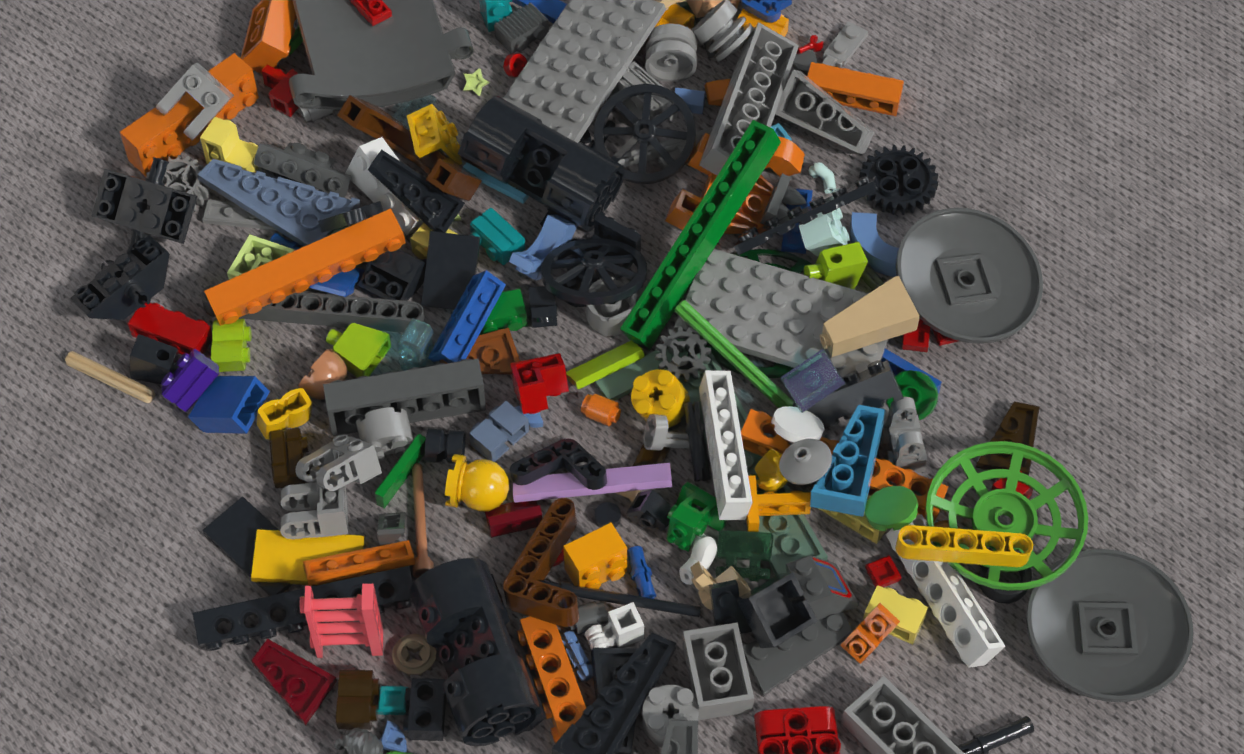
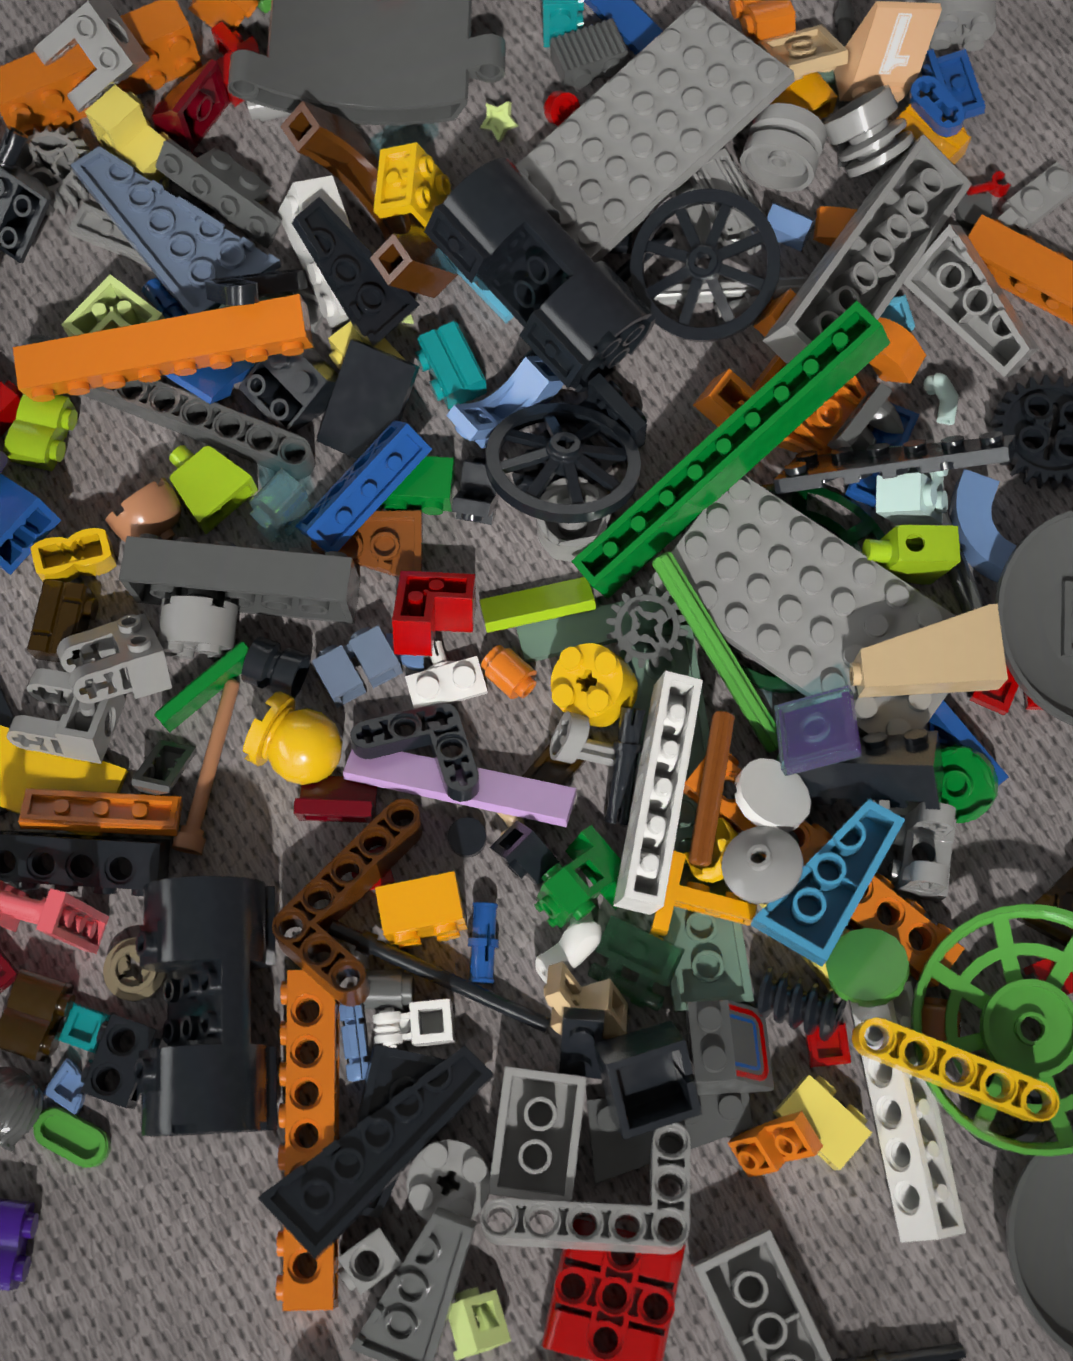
camera: 20 degrees right, 15 degrees up
(264, 120) = (192, 107): none -> dark red slope
(560, 426) = (446, 680): none -> white plate
(758, 431) = (711, 789): none -> dark orange axle
(777, 697) = (605, 1216): none -> light grey beam
(857, 549) = (799, 1005): none -> black piece

